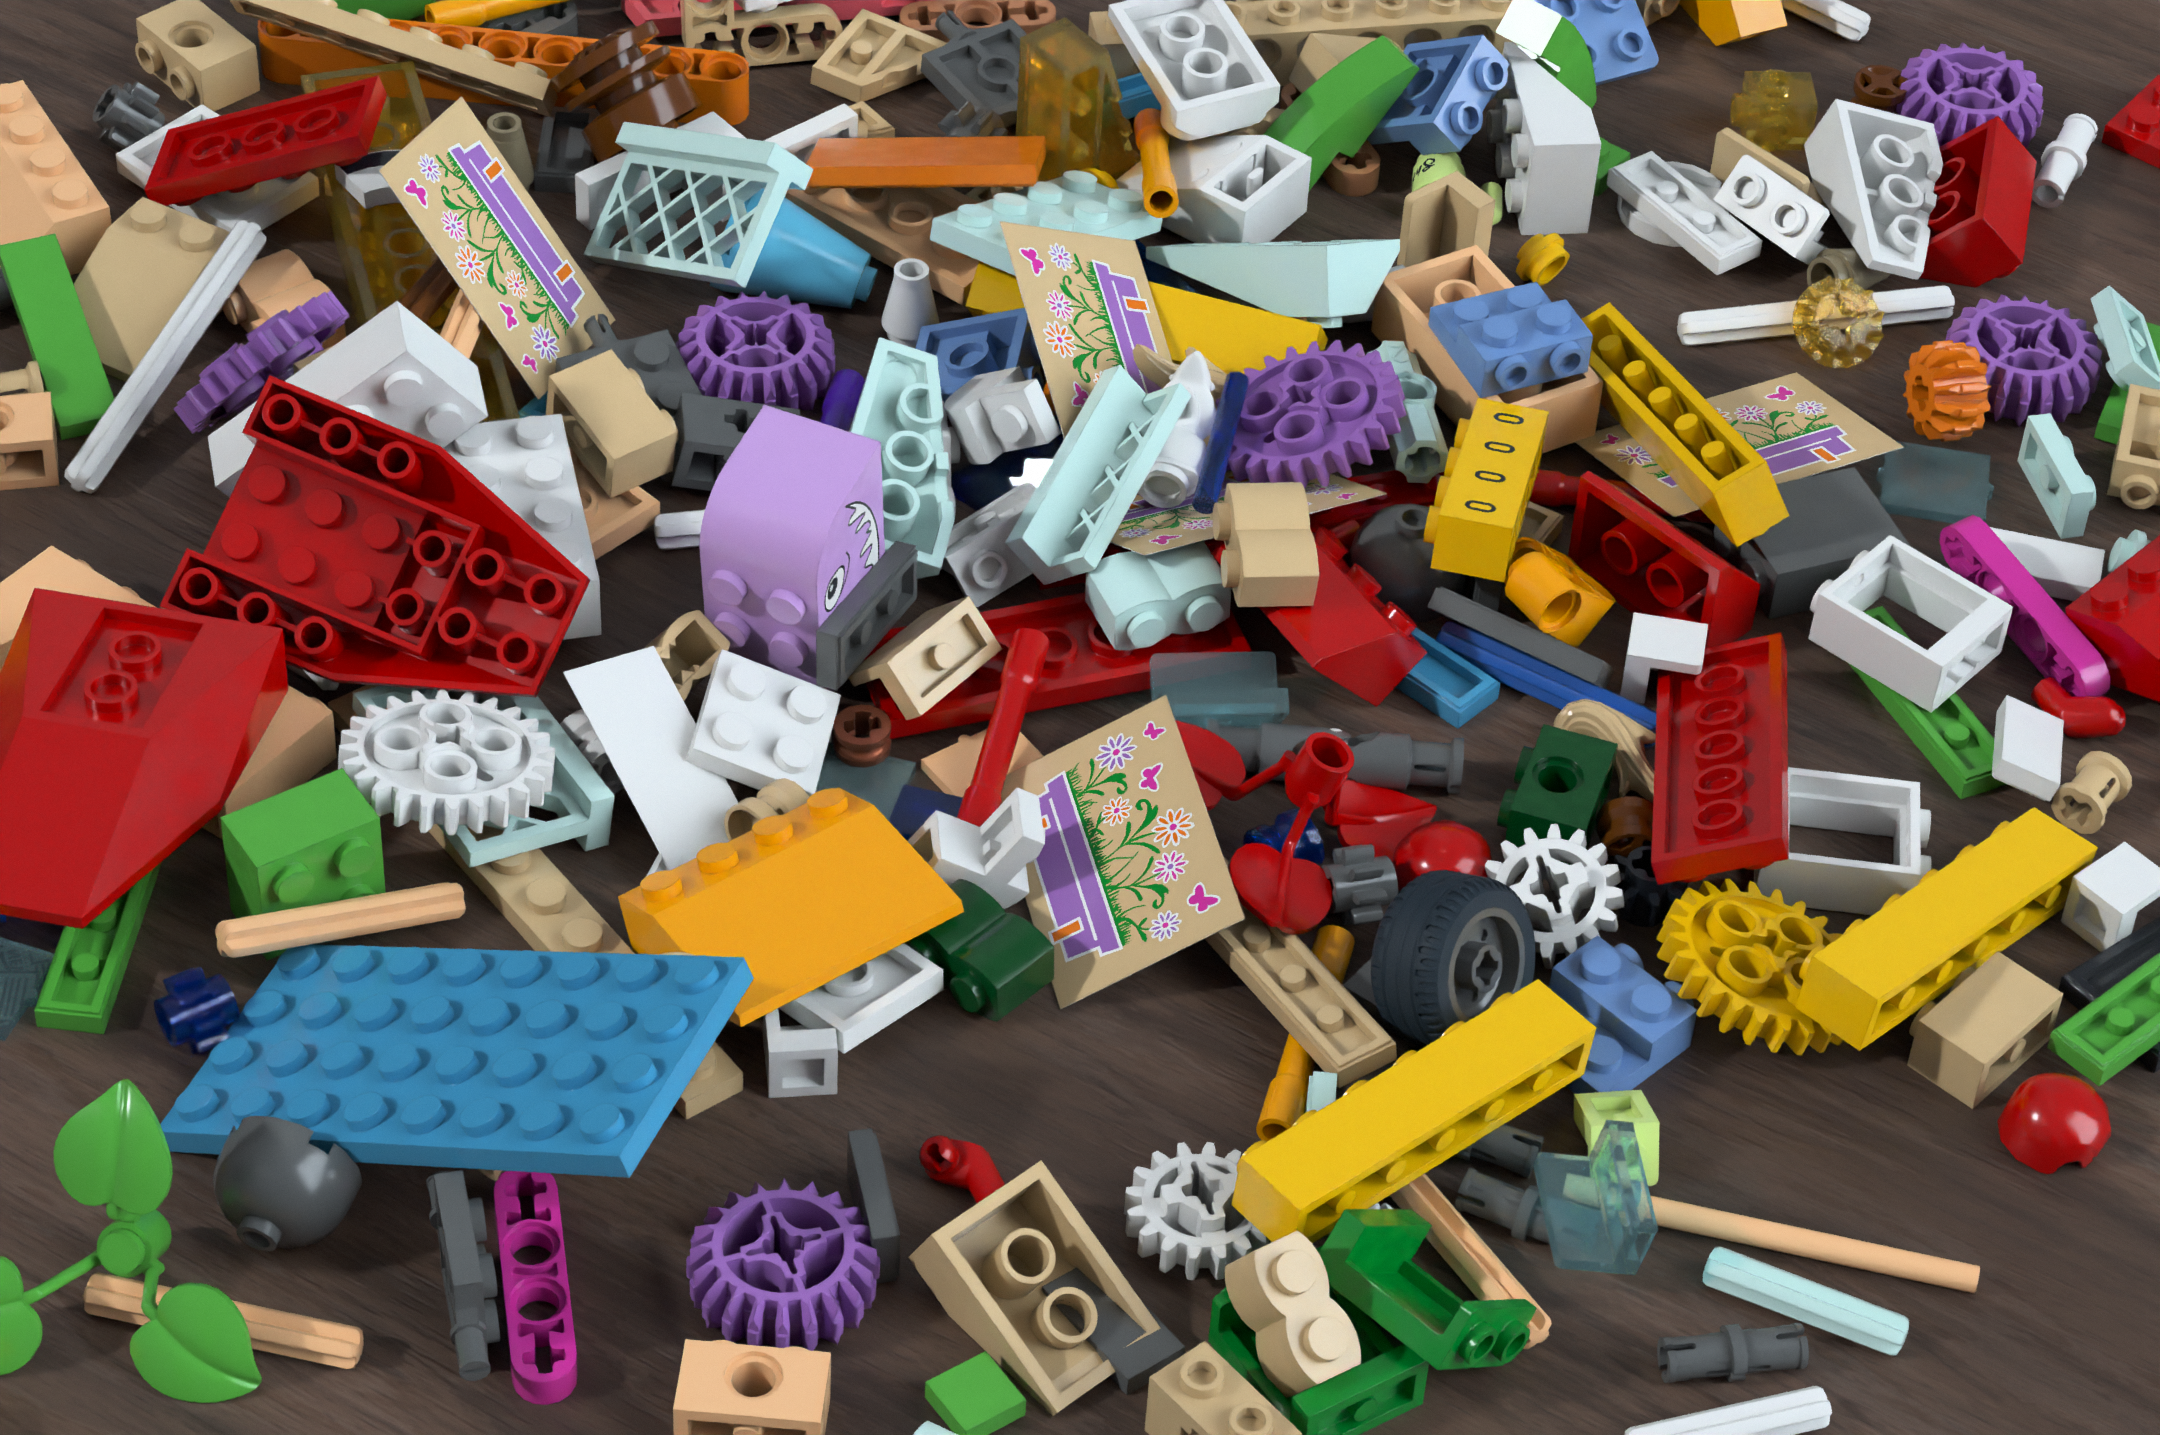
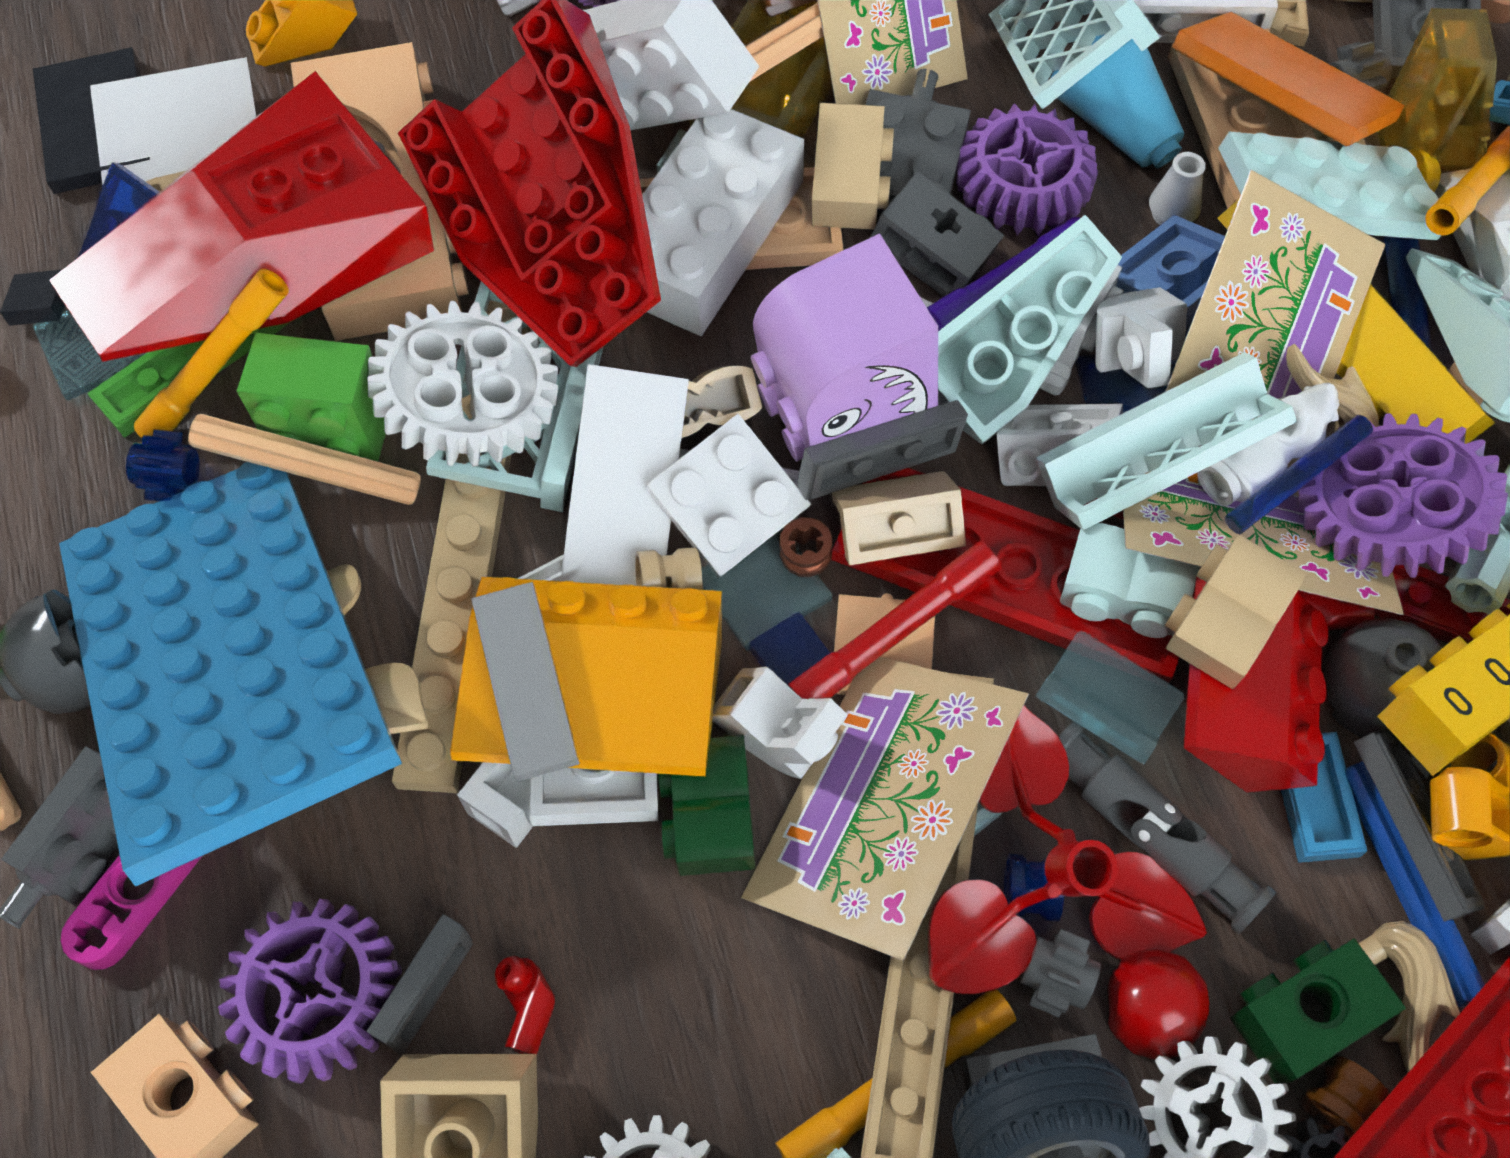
camera: 45 degrees right, 20 degrees up
(203, 805) = (245, 315): none -> light orange piece
(755, 921) = (525, 682): none -> light grey tile

